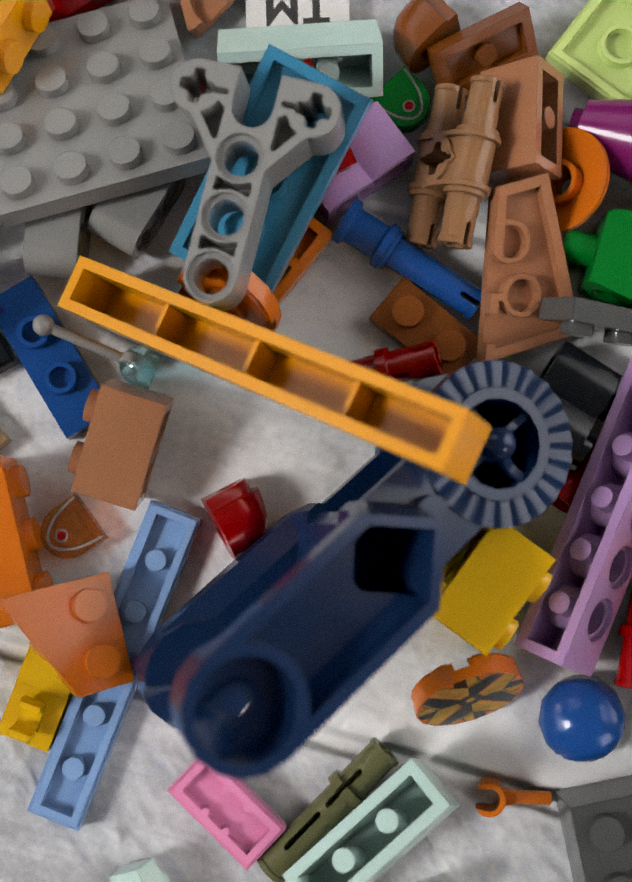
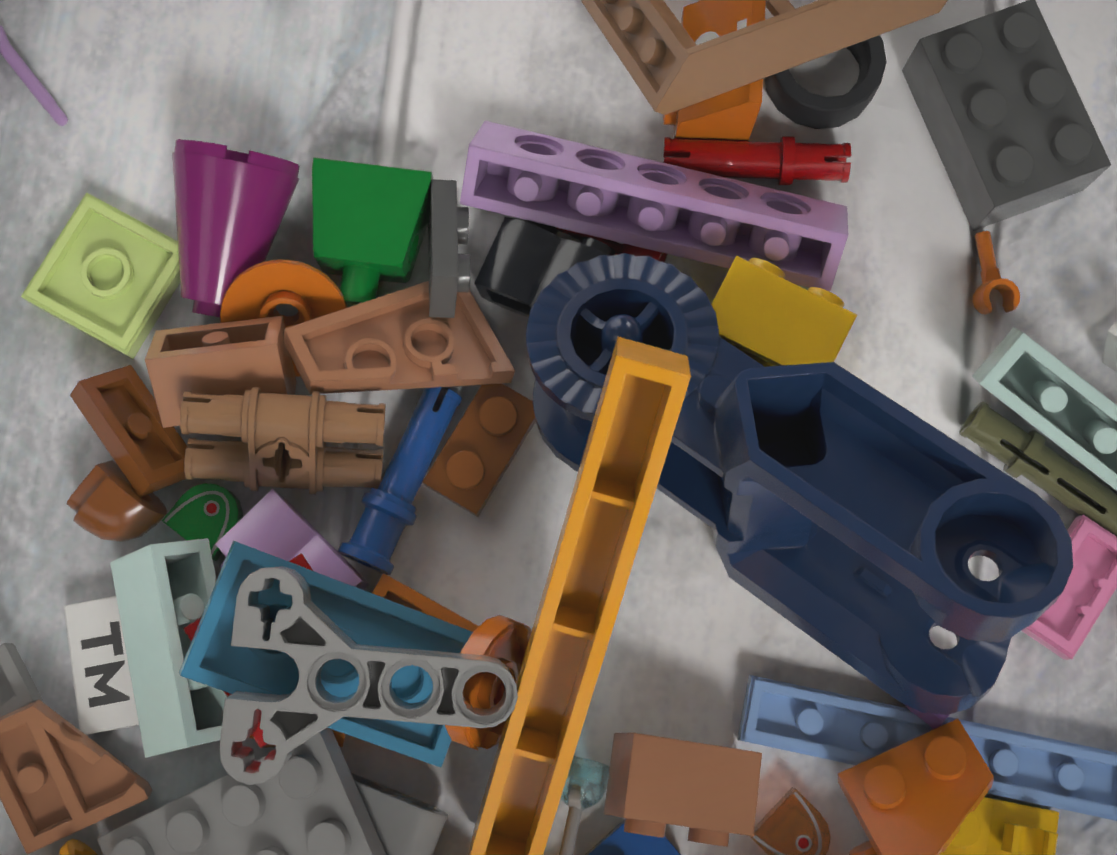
camera: 100 degrees left, 5 degrees down
(237, 515) = (739, 633): red piece -> none
(405, 363) = (536, 480): red pin -> none
(467, 693) = (897, 345): tile -> none
(582, 718) = (891, 210): blue hair -> none

